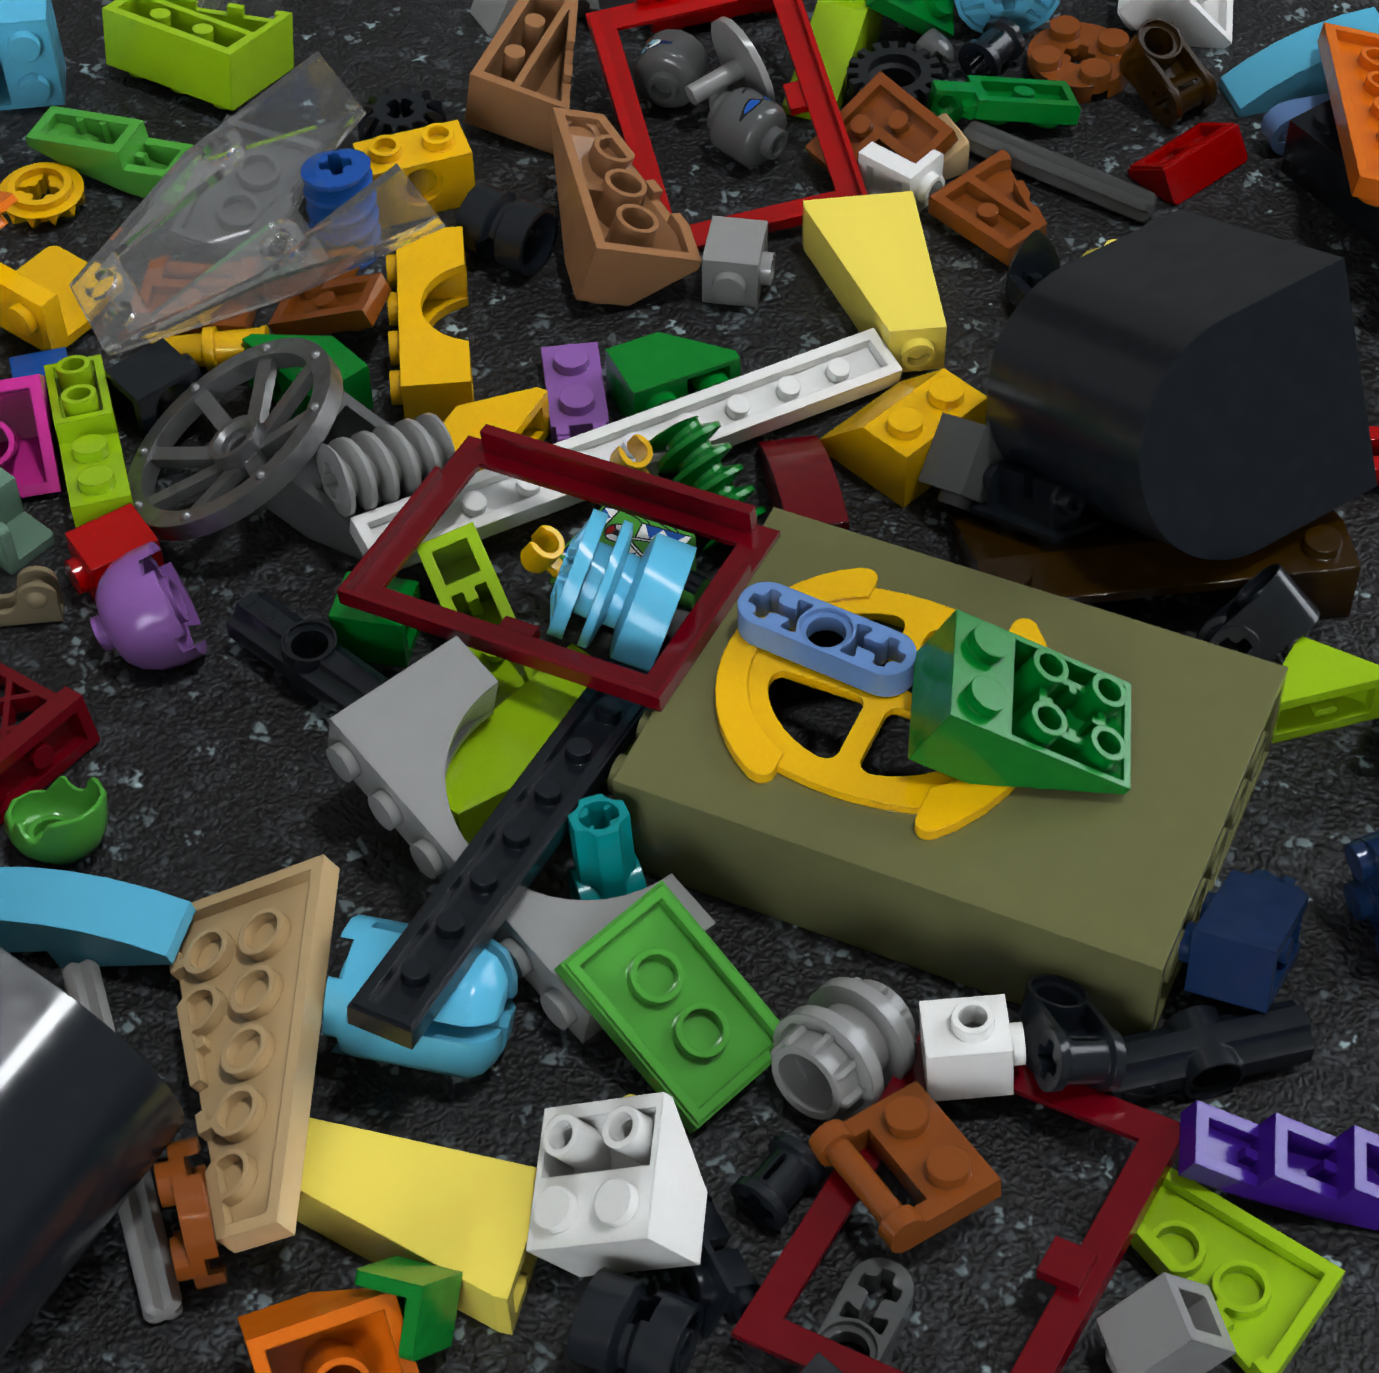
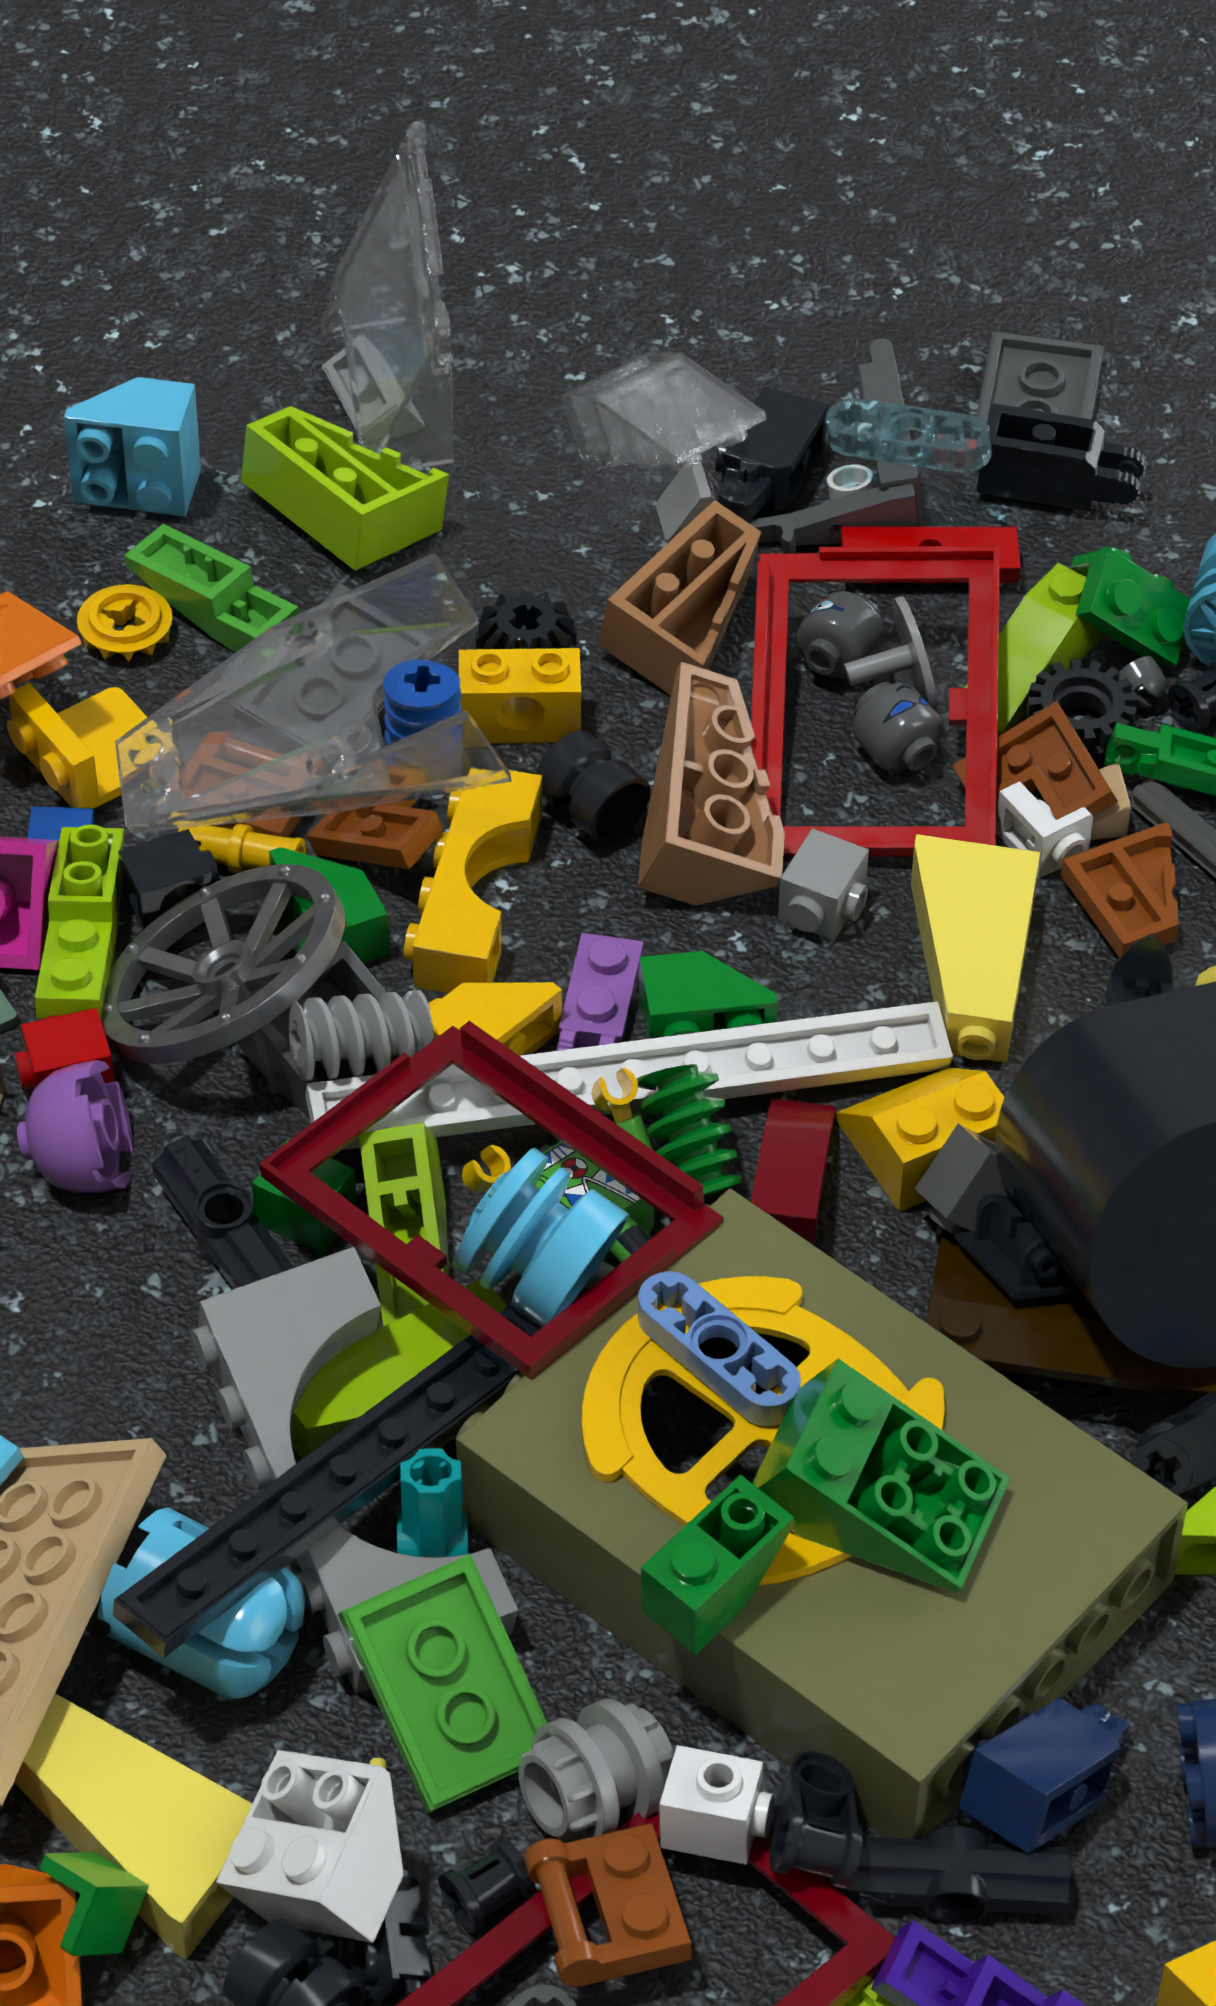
camera: 15 degrees right, 0 degrees up
(904, 824) = (714, 1564): none -> green slope

